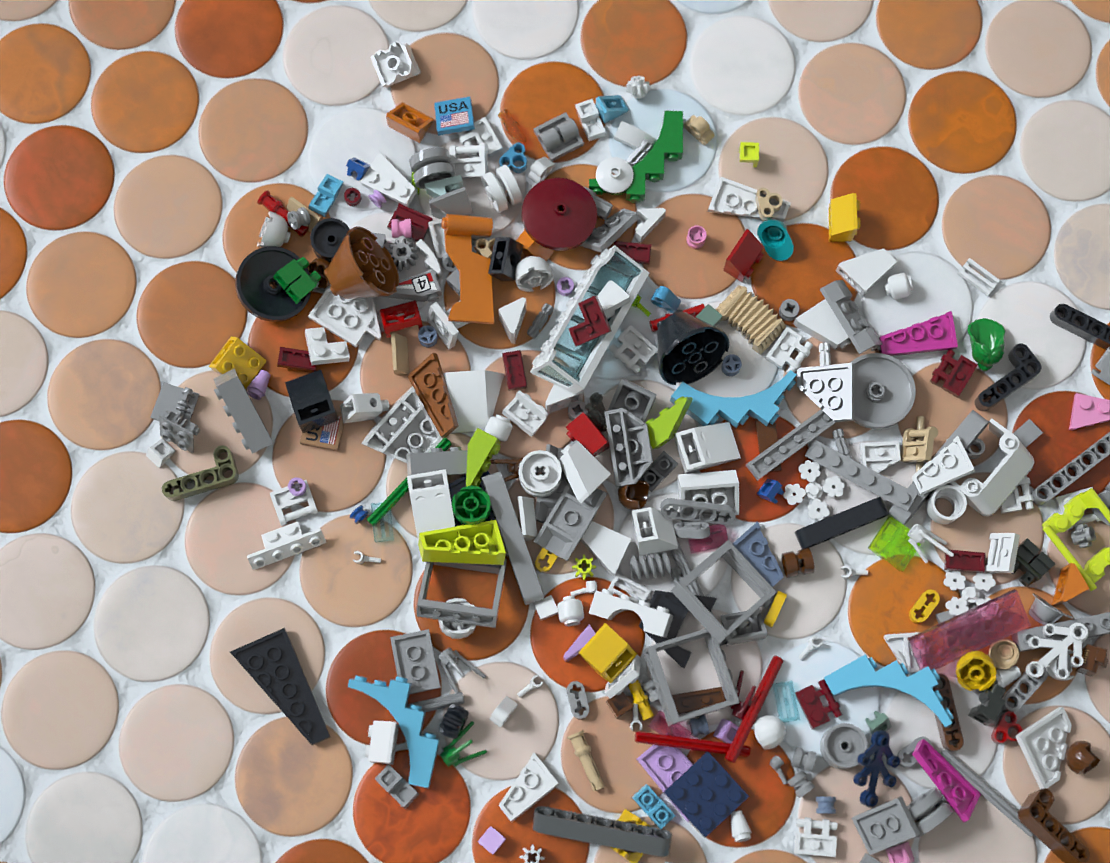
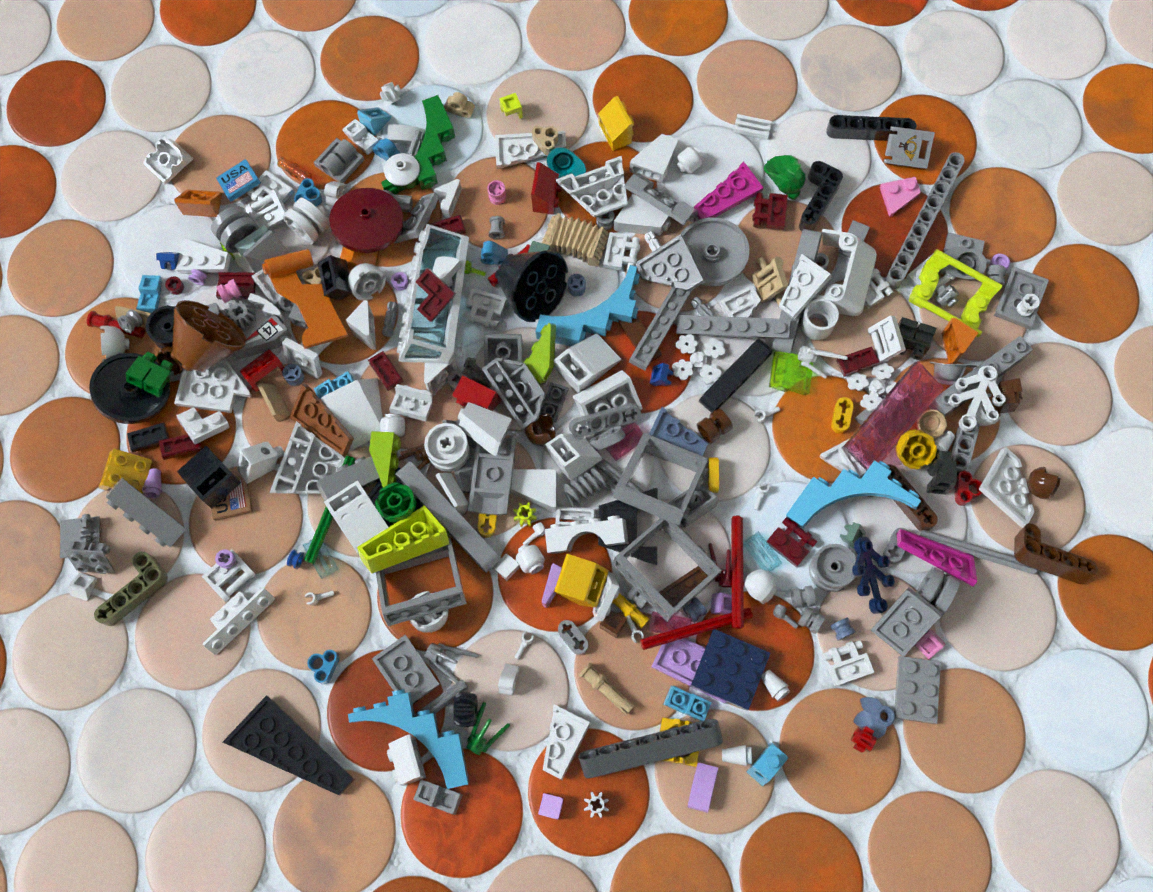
camera: 20 degrees left, 5 degrees down
(271, 337) = (147, 437): none -> black plate
(348, 627) = (328, 666): none -> dark azure piece
(458, 364) = (332, 385): none -> medium azure slope
(608, 146) = (385, 149): none -> dark azure piece
(680, 273) = (497, 227): none -> light grey bush
(795, 279) = (598, 189): none -> white wedge

